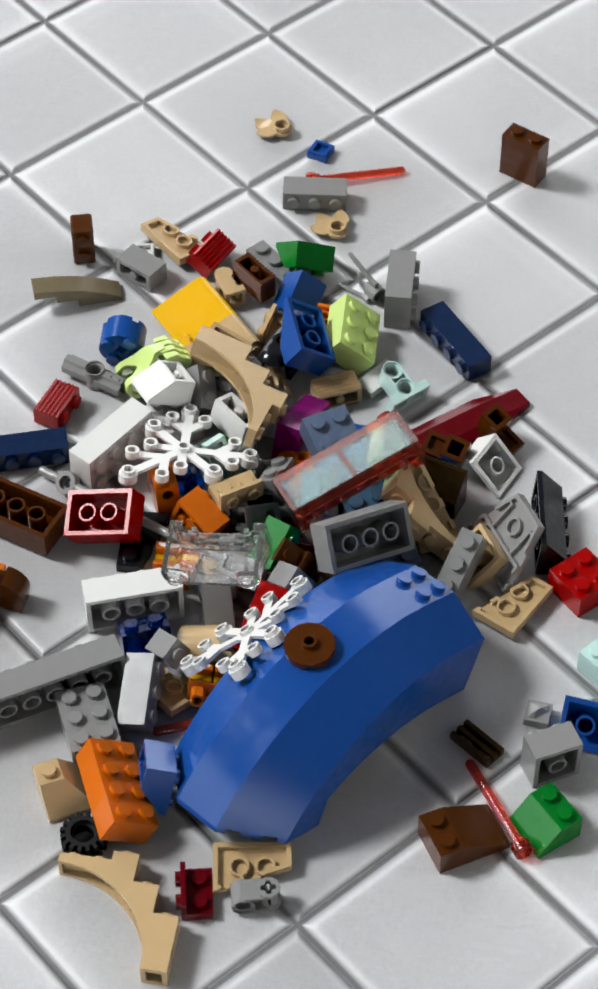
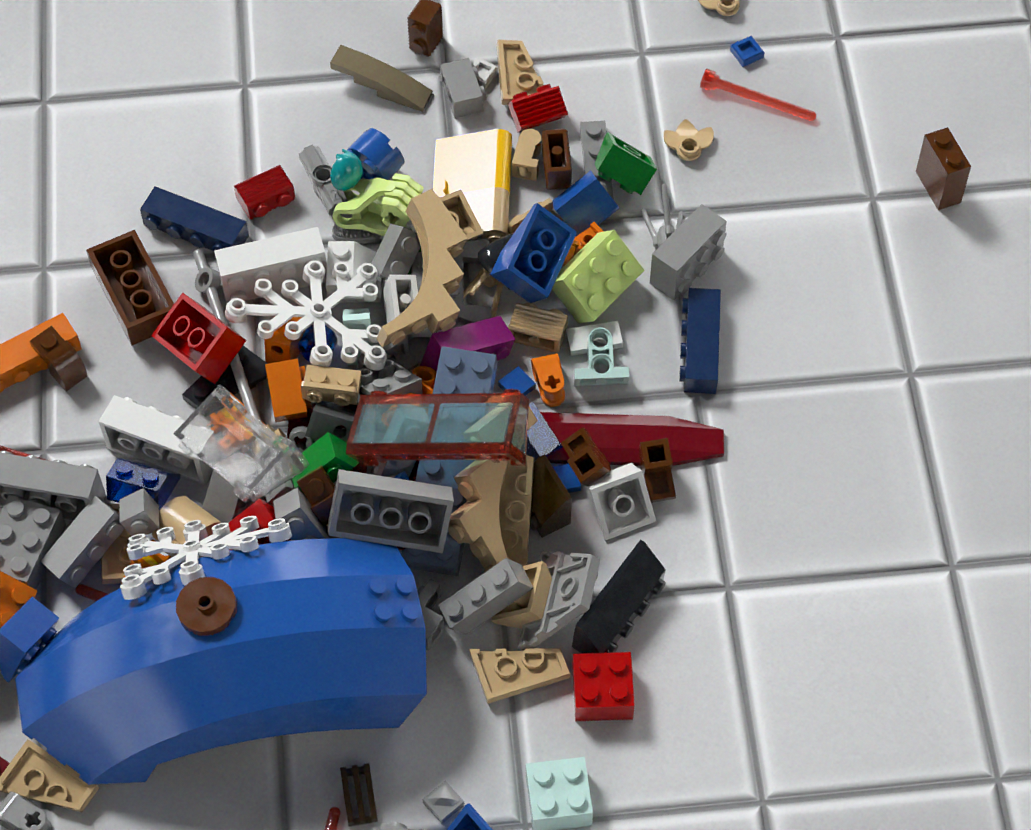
camera: 35 degrees right, 10 degrees up
(117, 353) = (346, 171): none -> teal hair
(165, 384) = (360, 230): white slope -> none
(314, 193) = (697, 96): light grey brick -> none
(366, 411) = (549, 378): none -> orange piece

